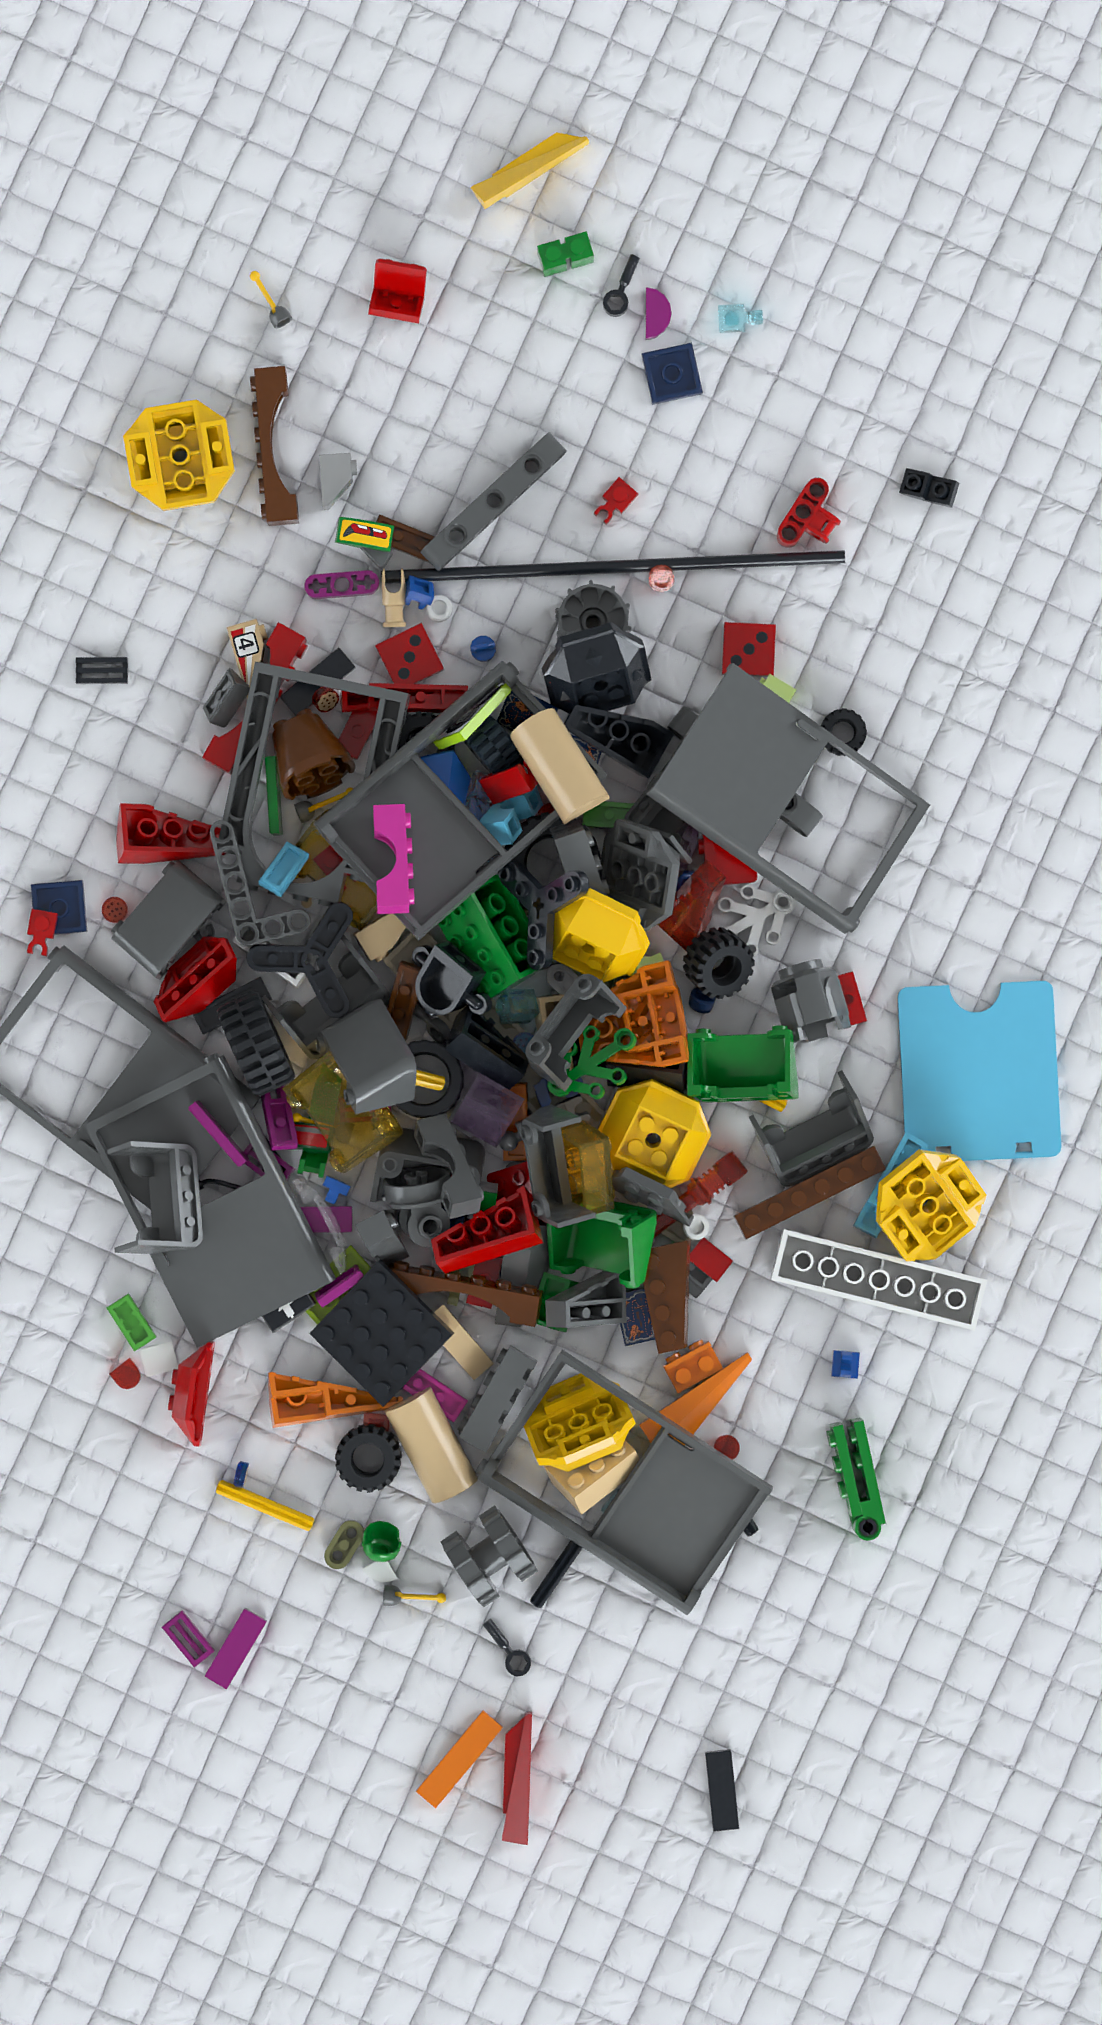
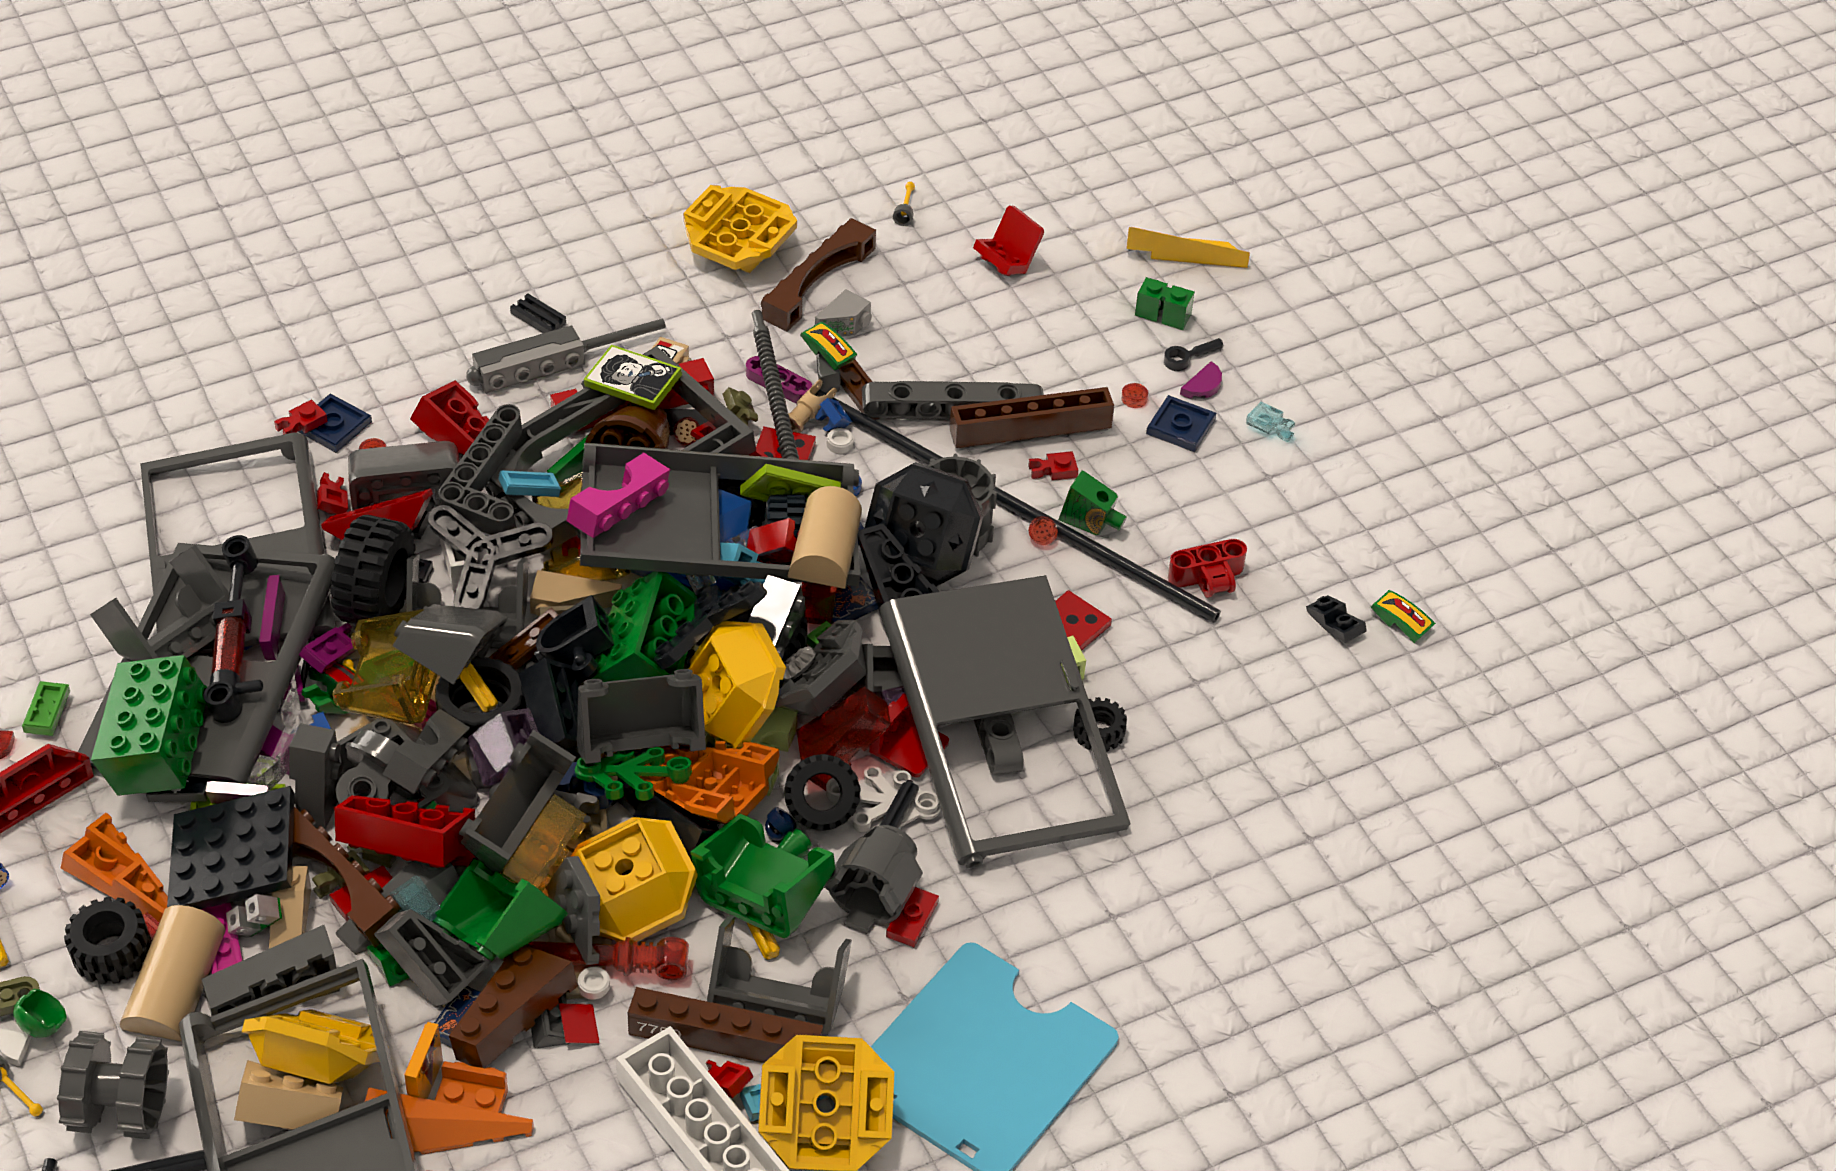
camera: 35 degrees right, 40 degrees down
(133, 981) = (331, 496): none -> red plate
(151, 713) = (541, 355): none -> piece
(219, 1183) = (232, 625): none -> black piece
(245, 1298) = (150, 725): none -> green brick
(269, 710) = (632, 377): none -> tile
(293, 554) = (773, 387): none -> dark grey hose
(342, 640) = (740, 404): none -> olive plate
(442, 1365) = (257, 915): none -> flat silver piece
(537, 1272) = (416, 896): none -> clear light blue brick
(567, 473) = (1031, 417): none -> reddish brown brick
(615, 372) = (1134, 395): none -> clear red tile
(621, 883) = (799, 662): none -> light grey gear
(656, 1381) = (424, 1062): none -> light orange tile
(673, 532) = (1091, 506): none -> green torso
(727, 1016) = (796, 843): none -> green cone
(773, 932) = (900, 804): none -> black axle
(842, 1227) = (730, 1076): none -> red plate
(974, 445) = (1407, 616): none -> slope

